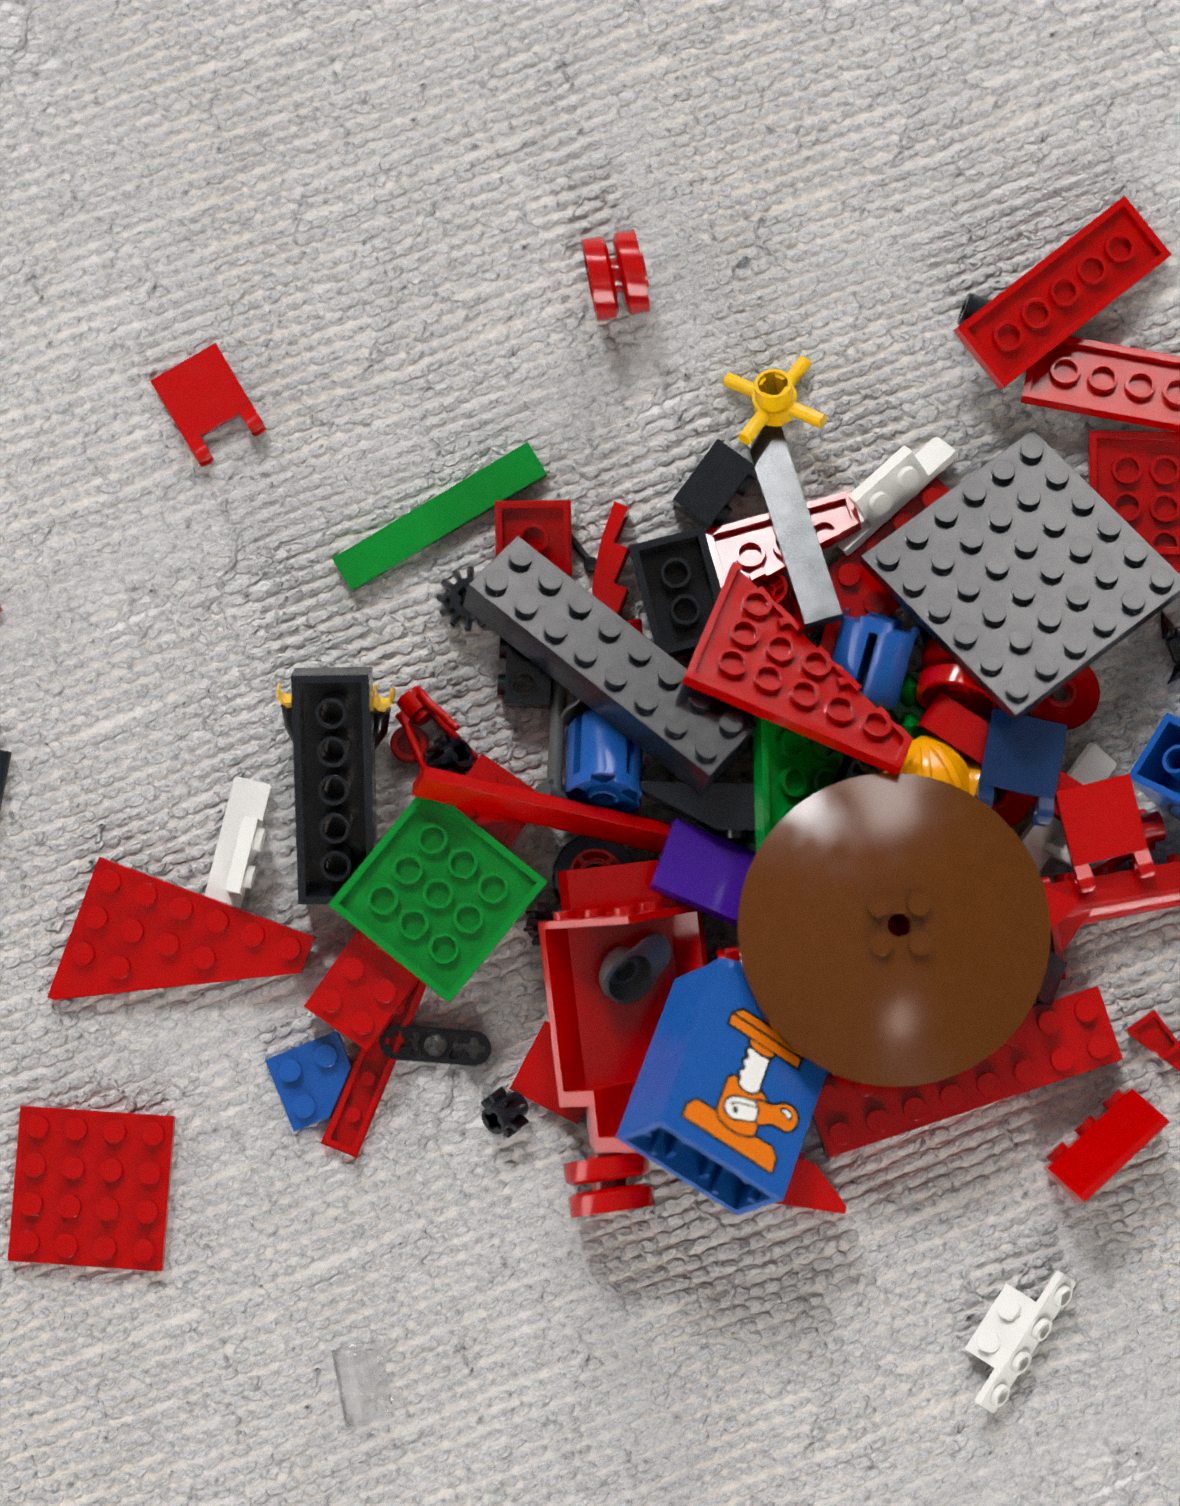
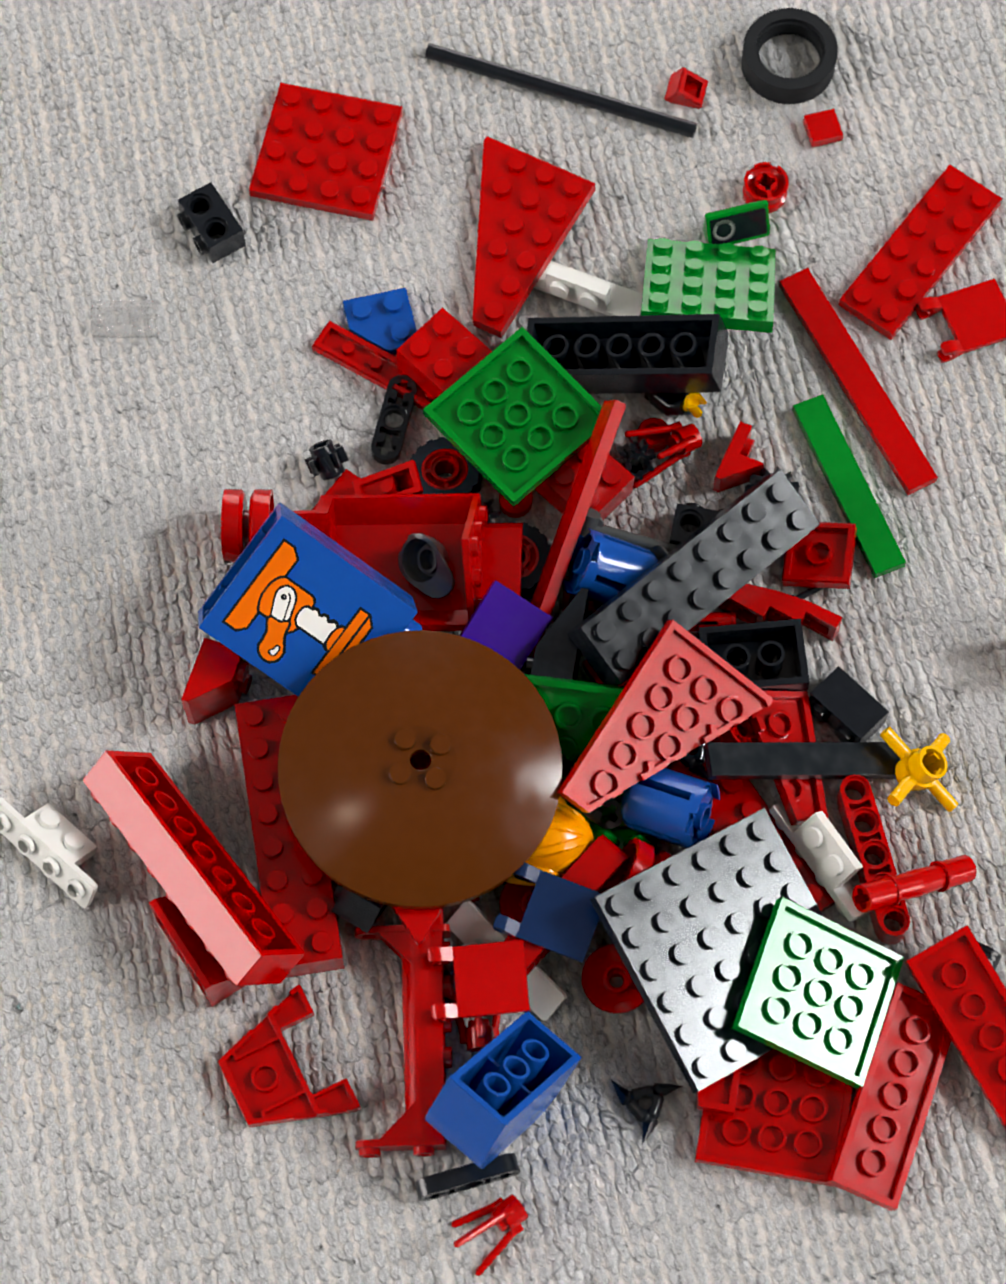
camera: 95 degrees right, 15 degrees down
(85, 662) = (769, 175): none -> red wheel
(126, 683) = (737, 223): none -> slope
(127, 468) = (920, 252): none -> red plate
(209, 1300) = (215, 221): none -> black brick
(222, 702) = (711, 280): none -> plate
(305, 522) = (858, 381): none -> red tile
(441, 648) = (736, 464): none -> red slope
(522, 986) = (442, 457): none -> wheel
(530, 1025) = (394, 480): none -> red slope
(895, 425) = (871, 843): none -> red beam
(913, 389) = (913, 883): none -> red piece
(1032, 1165) = (193, 868): none -> red brick
(1054, 474) = (818, 993): none -> plate

